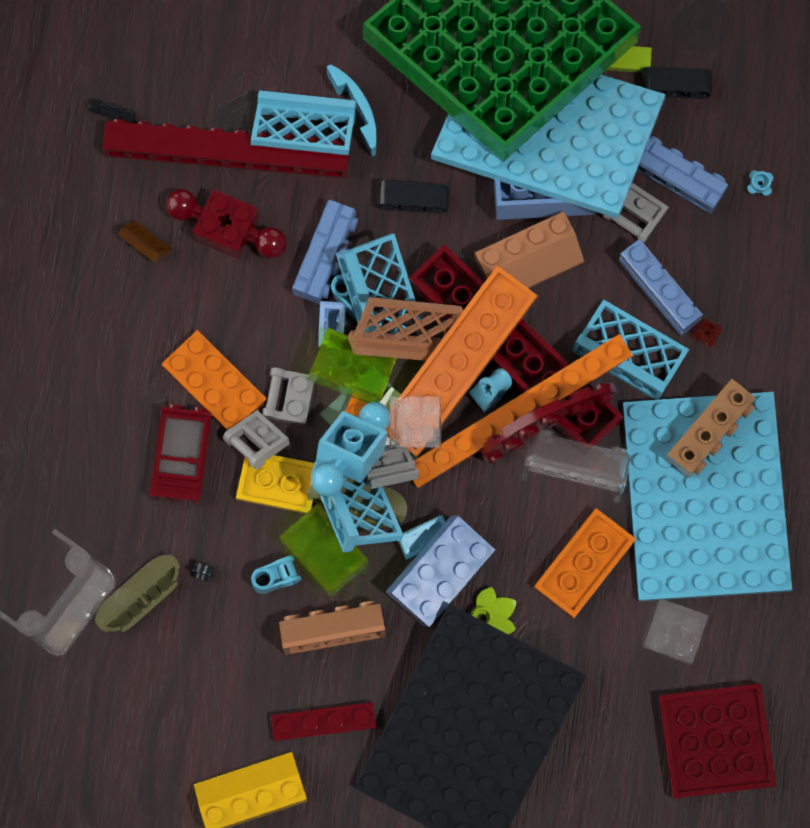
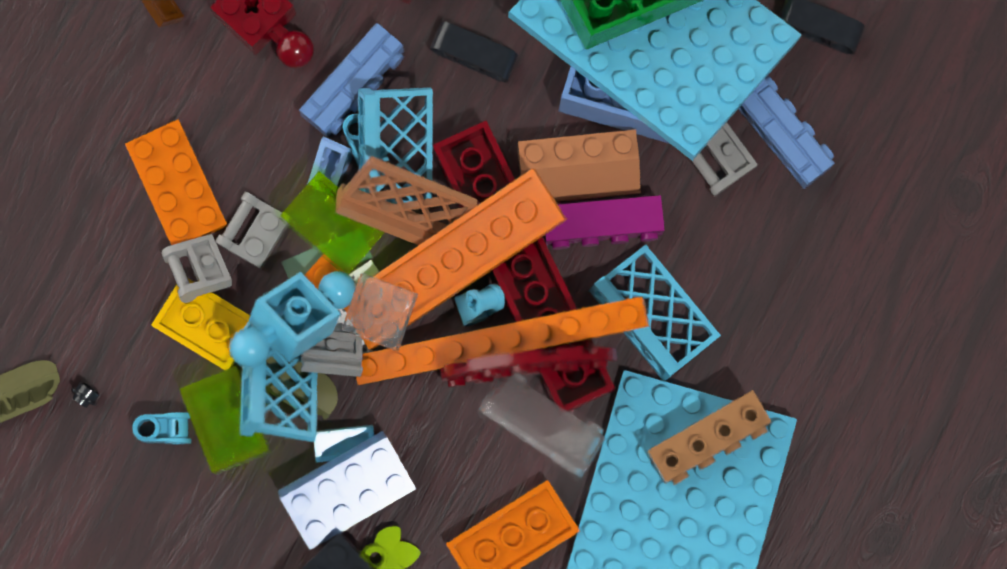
camera: 15 degrees right, 5 degrees up
(181, 454) = (109, 254): dark red door -> none
(332, 629) = (201, 510): nougat slope -> none
(569, 290) = (608, 220): none -> magenta brick
(660, 287) = (713, 253): medium blue brick -> none
(705, 325) = (756, 323): clear red plate -> none
(765, 178) = (880, 169): medium azure plate -> none

